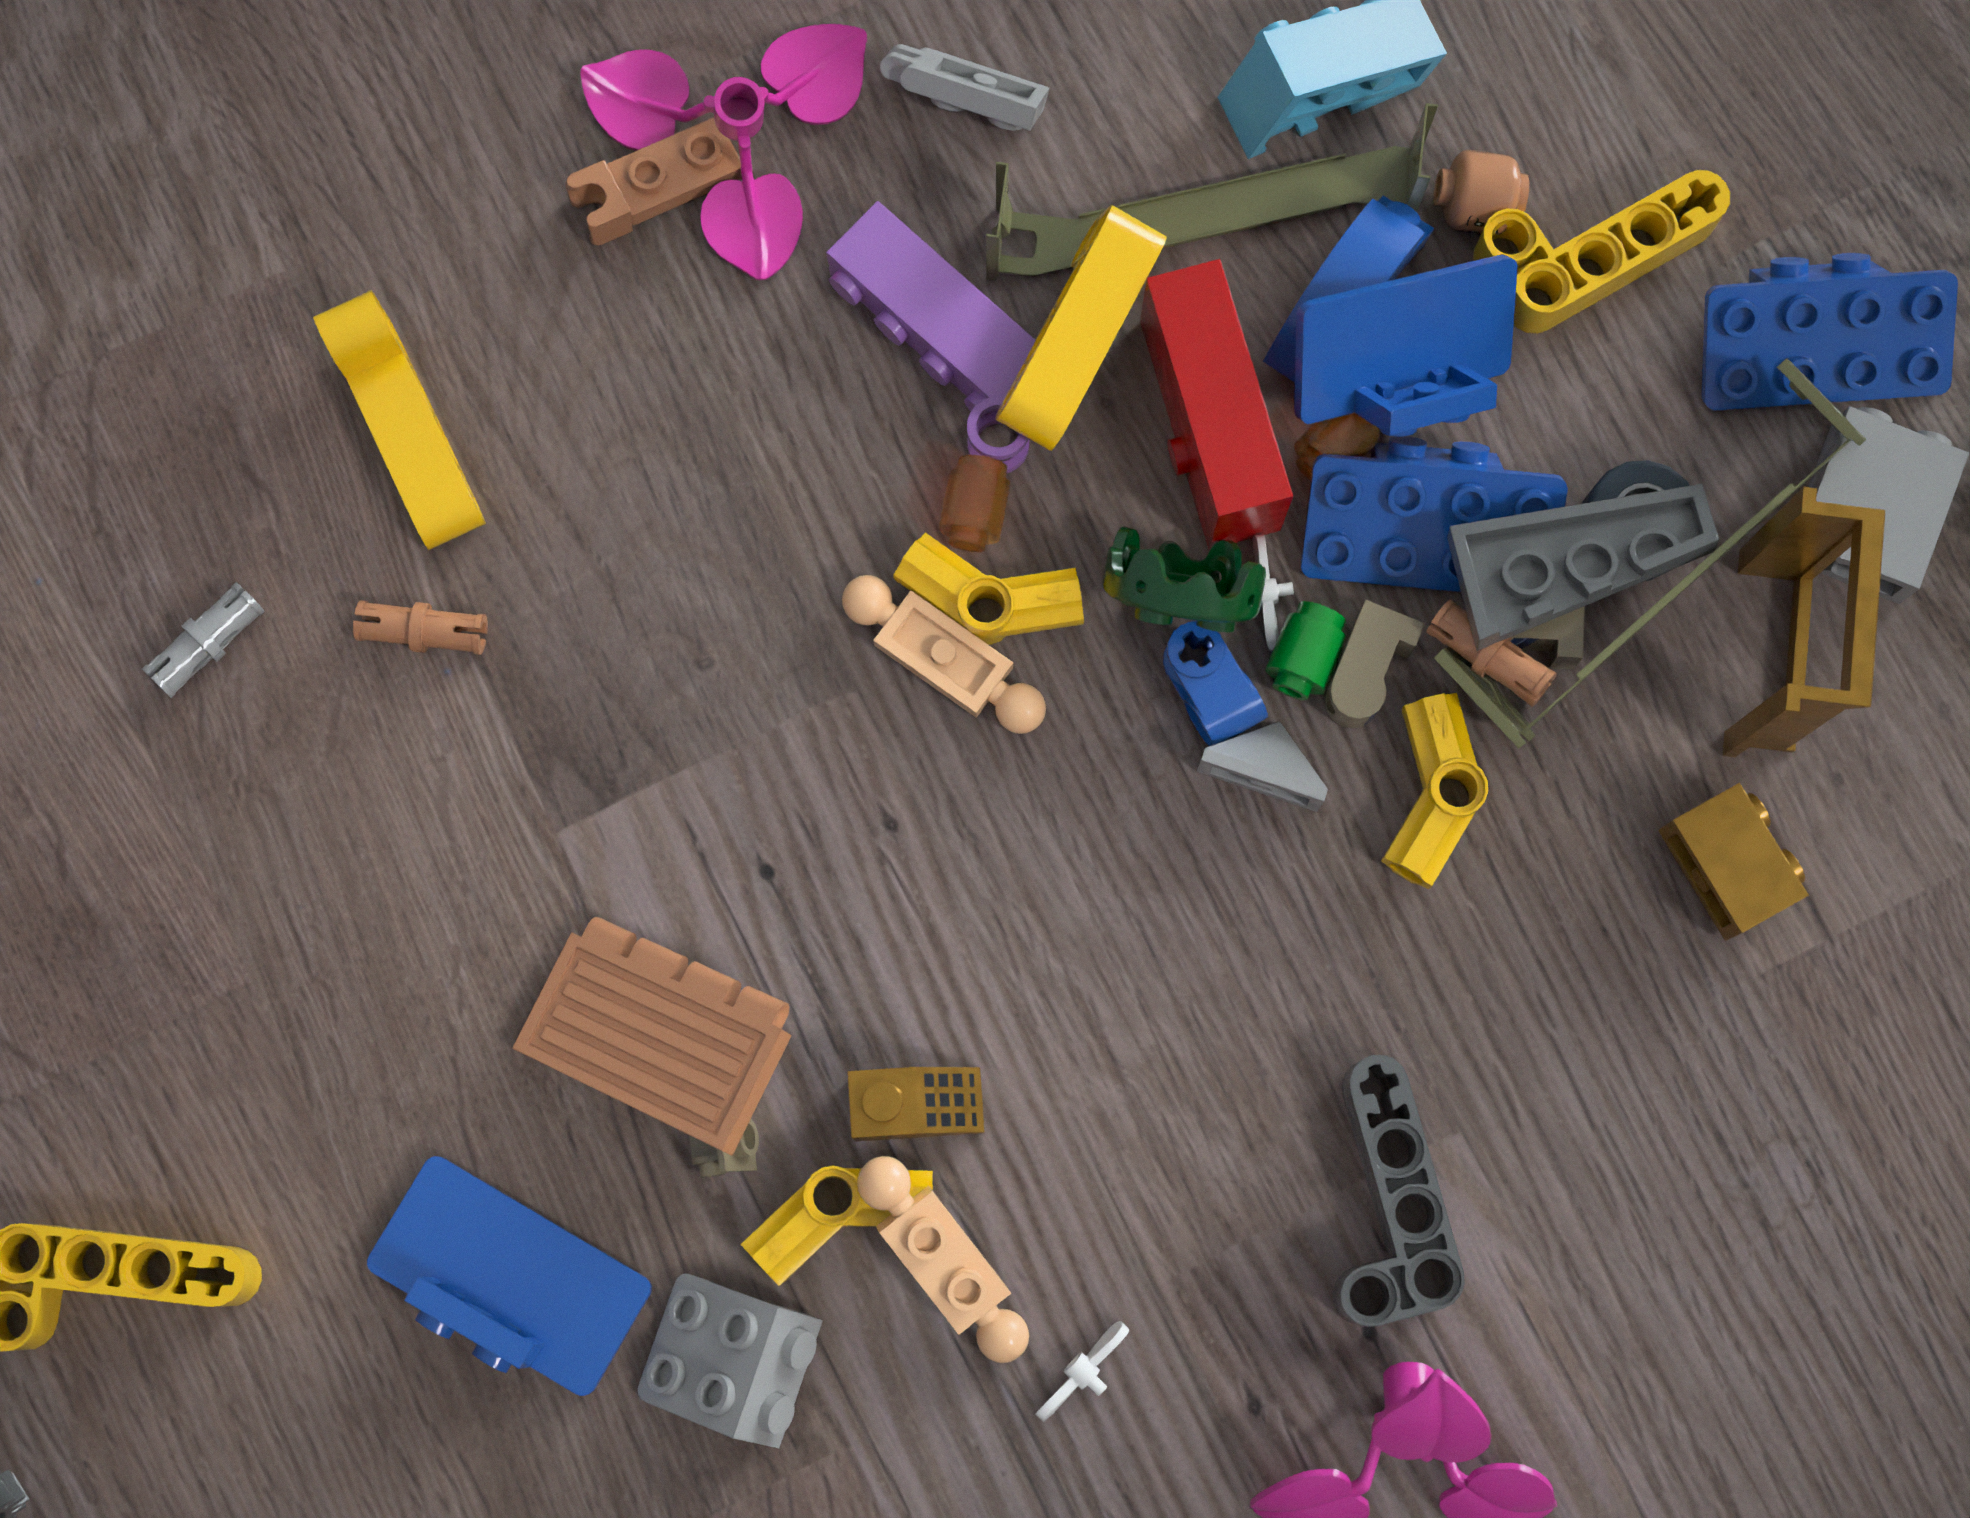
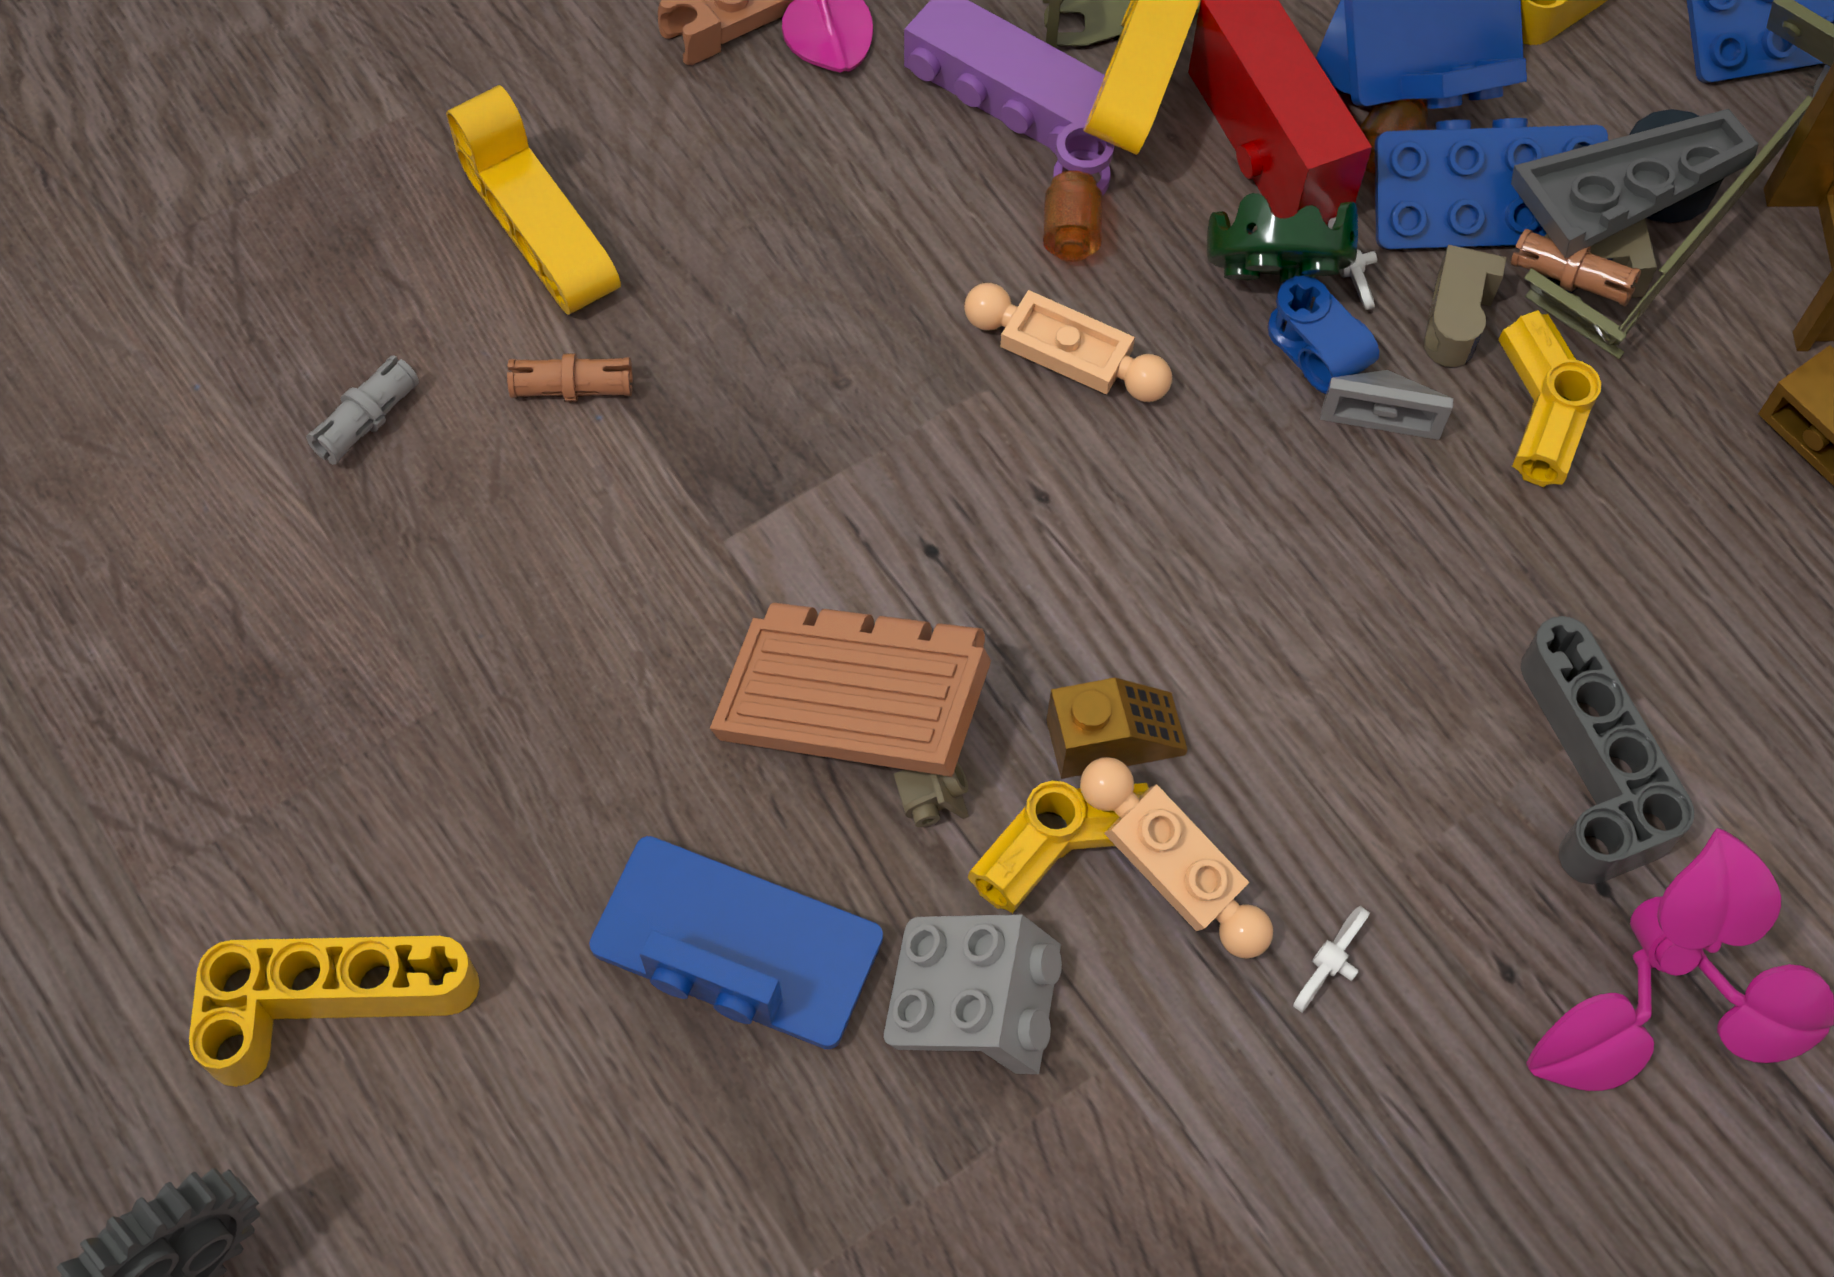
camera: 10 degrees left, 15 degrees down
(953, 585) = (1128, 290): yellow piece -> none
(1306, 650) = (1402, 298): green brick -> none

